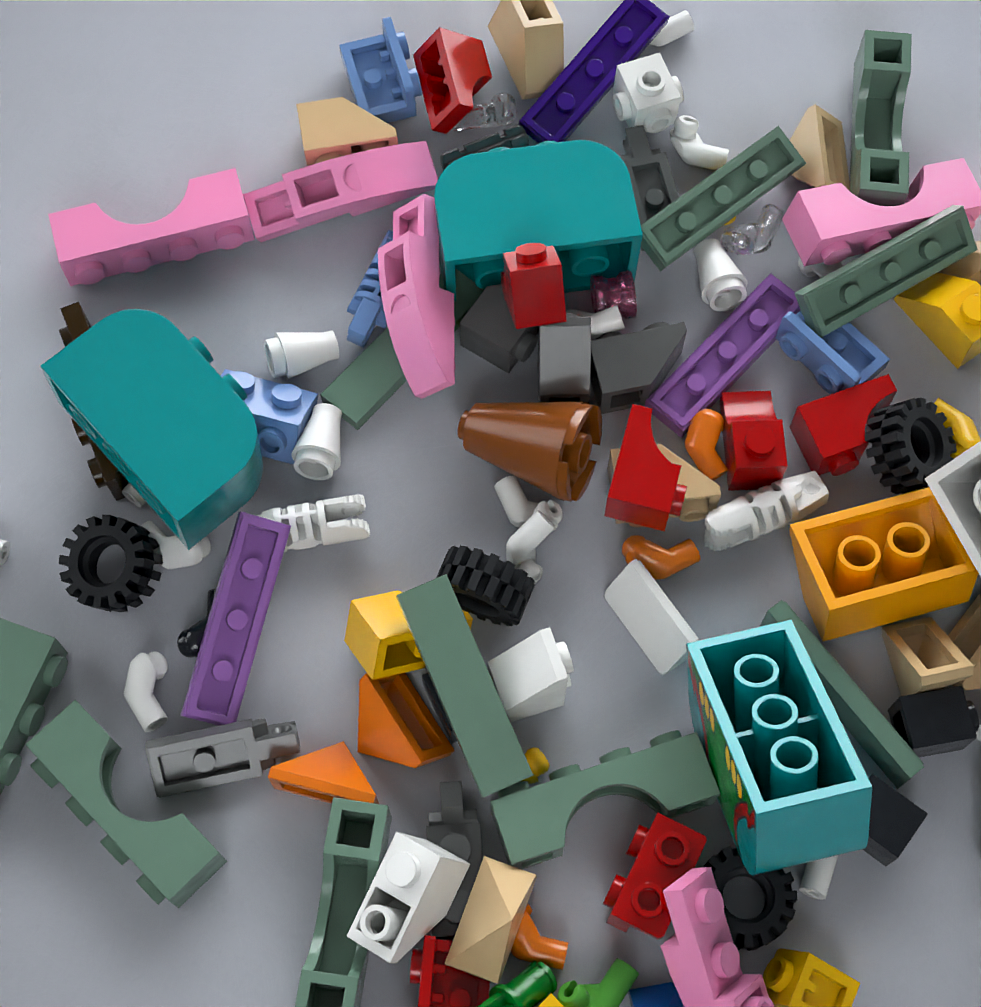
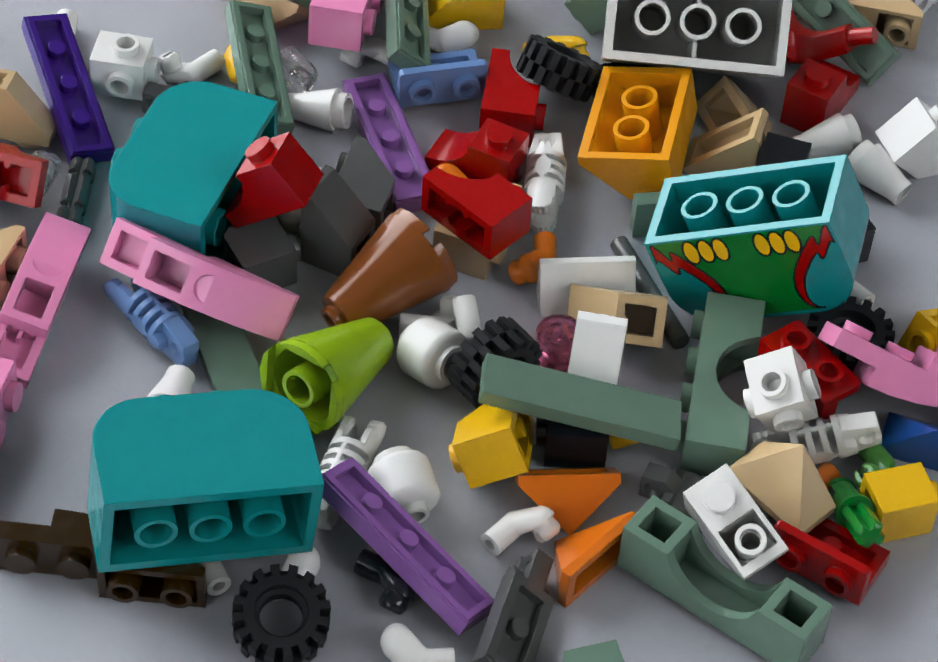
camera: 65 degrees left, 20 degrees down
(307, 584) = (407, 479): none -> white head
(335, 703) = (518, 522): none -> white arm
(401, 455) = (327, 368): none -> lime cone
(479, 521) = (427, 351): none -> white head
(574, 615) = (556, 339): none -> clear pink wheel
(584, 927) = (829, 438): none -> white hinge
(590, 865) = (781, 390): none -> white brick
(623, 668) = (644, 311): none -> tan slope
(678, 692) = (645, 284): none -> dark grey bar
(898, 332) = (453, 37): none -> white arm

